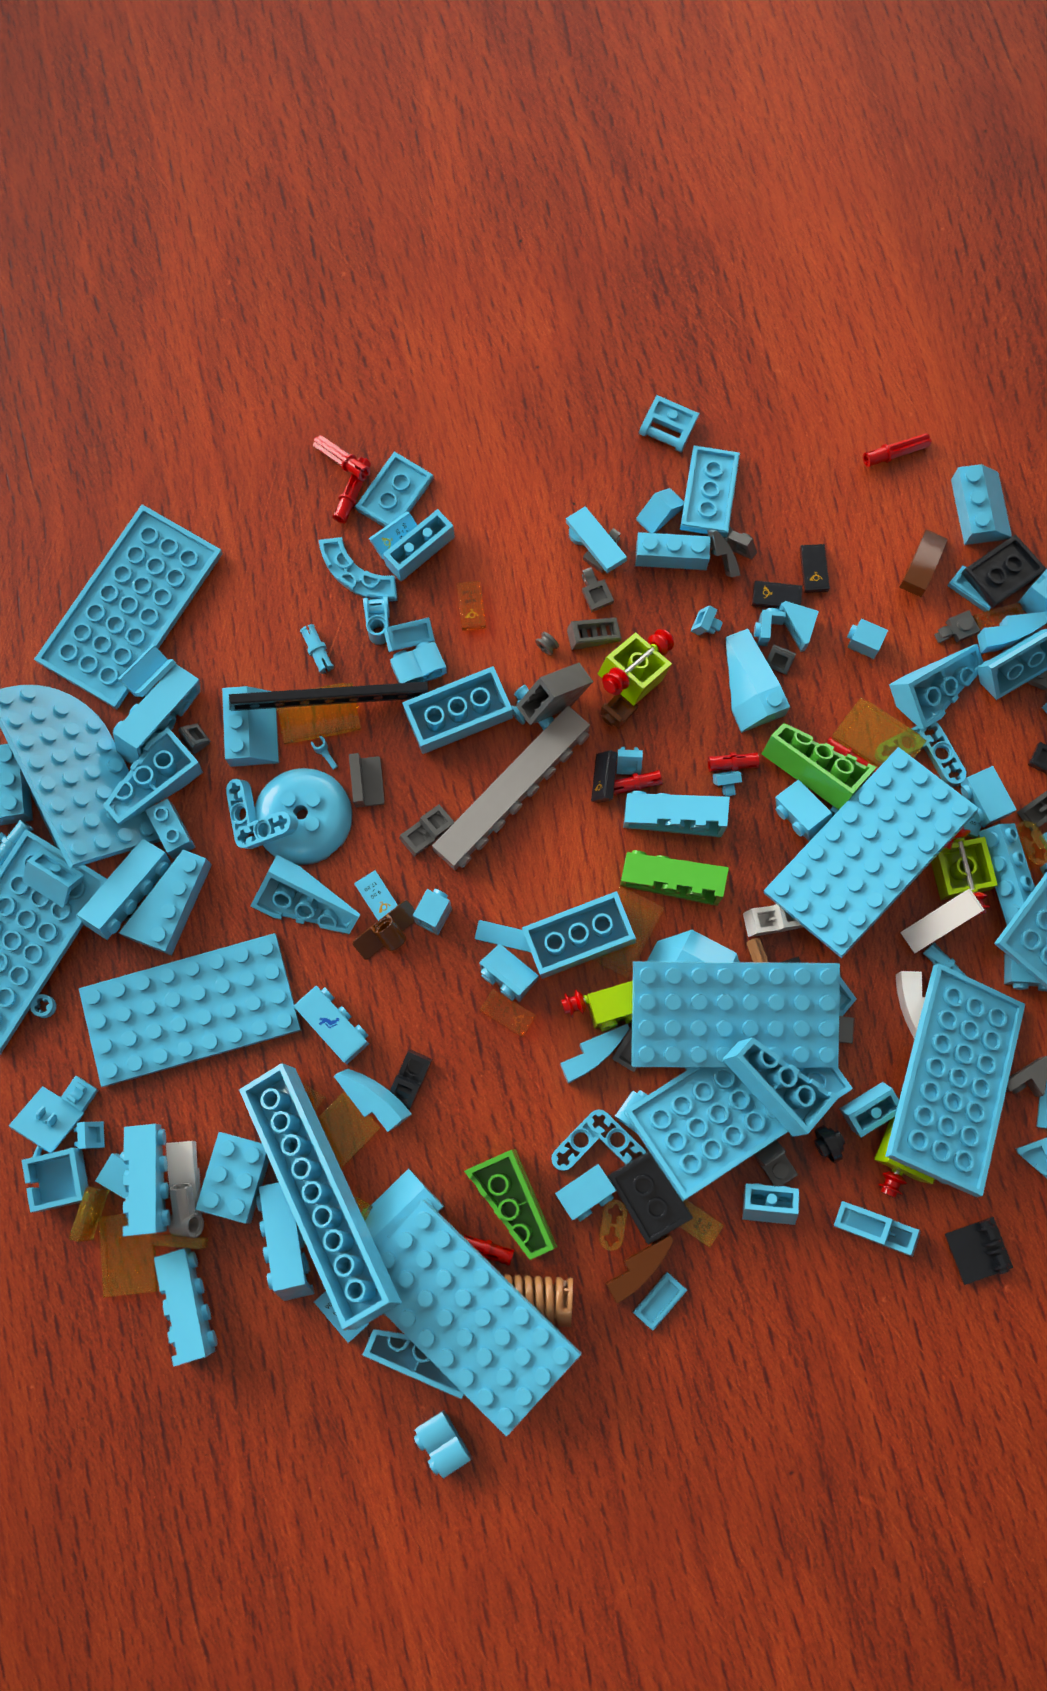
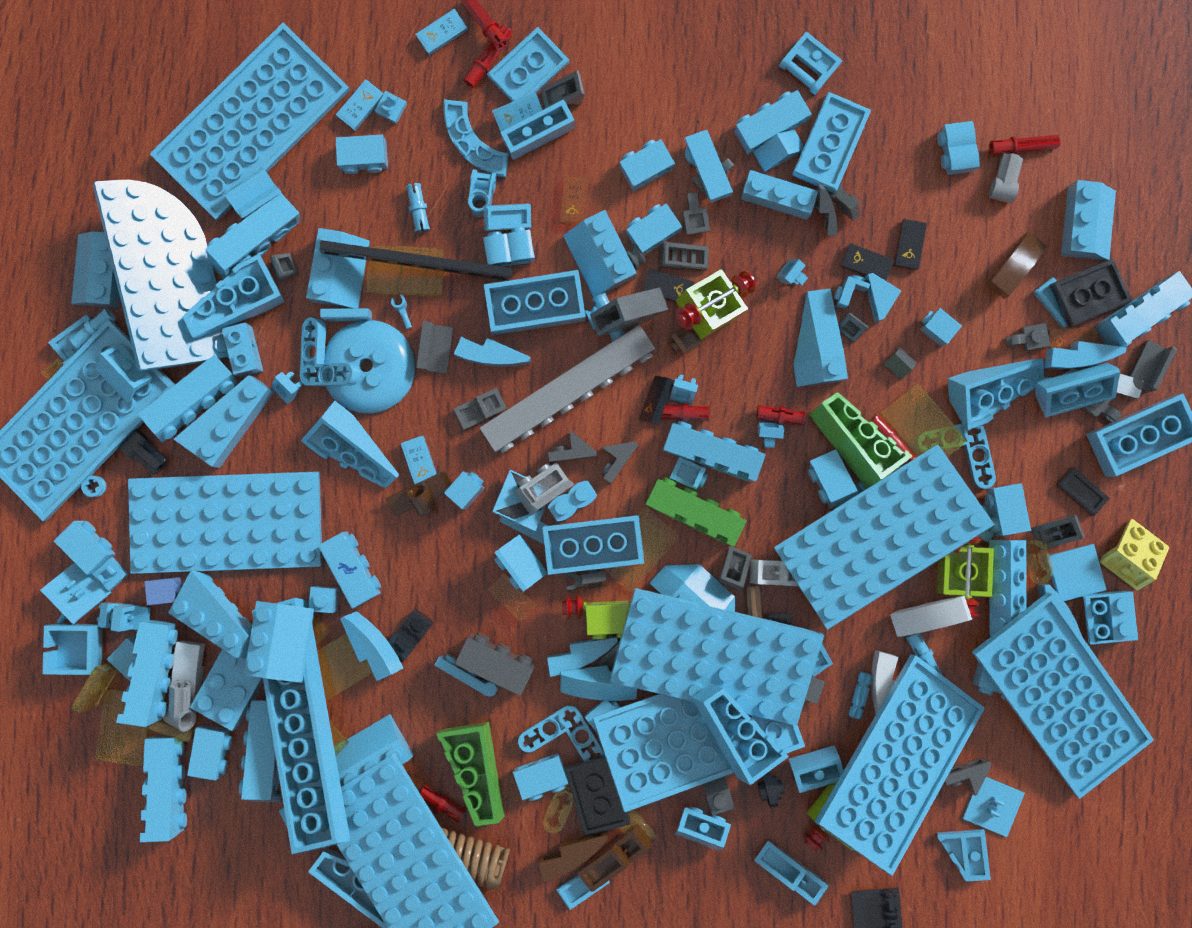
camera: 15 degrees right, 10 degrees up
(47, 1070) = (85, 546): none -> medium azure brick
(84, 954) = (139, 447): none -> black piece
(108, 1132) = (128, 617): none -> medium azure bracket
(141, 1095) = (162, 590): none -> medium blue brick
(195, 1103) = (212, 615): none -> medium azure wedge
(222, 855) = (285, 387): none -> medium azure tile
(225, 1256) = (209, 752): none -> medium azure brick
(236, 565) = (360, 105): none -> medium azure tile
(248, 609) = (361, 153): none -> medium azure brick
(267, 560) = (390, 107): none -> medium azure tile
(268, 768) = (333, 315): none -> medium azure tile
(276, 1110) = (279, 642): none -> medium azure slope
(300, 478) = (441, 32): none -> medium azure tile
(311, 1061) = (324, 599): none -> medium azure brick
(425, 772) = (490, 354): none -> medium azure slope
(438, 498) = (567, 88): none -> dark grey slope
(482, 1104) = (447, 664): none -> medium azure plate
(493, 909) = (510, 506): none -> medium azure piece
(508, 1081) = (495, 663): none -> dark grey brick
(510, 648) = (599, 254): none -> medium azure slope
(511, 890) = (543, 488): none -> light grey window
(534, 553) = (646, 164): none -> medium azure brick
(539, 845) = (579, 451): none -> dark grey slope
(551, 892) = (567, 504): none -> medium azure brick
(557, 612) = (653, 229): none -> medium azure brick
(582, 838) = (622, 453): none -> dark grey slope
(585, 973) = (590, 580): none -> dark grey plate
(590, 661) = (670, 285): none -> black tile
(618, 1078) = (594, 684): none -> medium azure slope
(656, 841) = (689, 473): none -> medium azure bracket
(657, 475) = (782, 116): none -> medium azure brick
(685, 1259) = (614, 858): none -> reddish brown slope
(729, 926) = (734, 568): none -> dark grey slope
(835, 467) = (959, 148): none -> medium azure brick
(837, 684) = (900, 363): none -> dark grey slope
(889, 490) = (1005, 185): none -> light grey piece
(894, 1024) = (860, 695): none -> medium azure axle

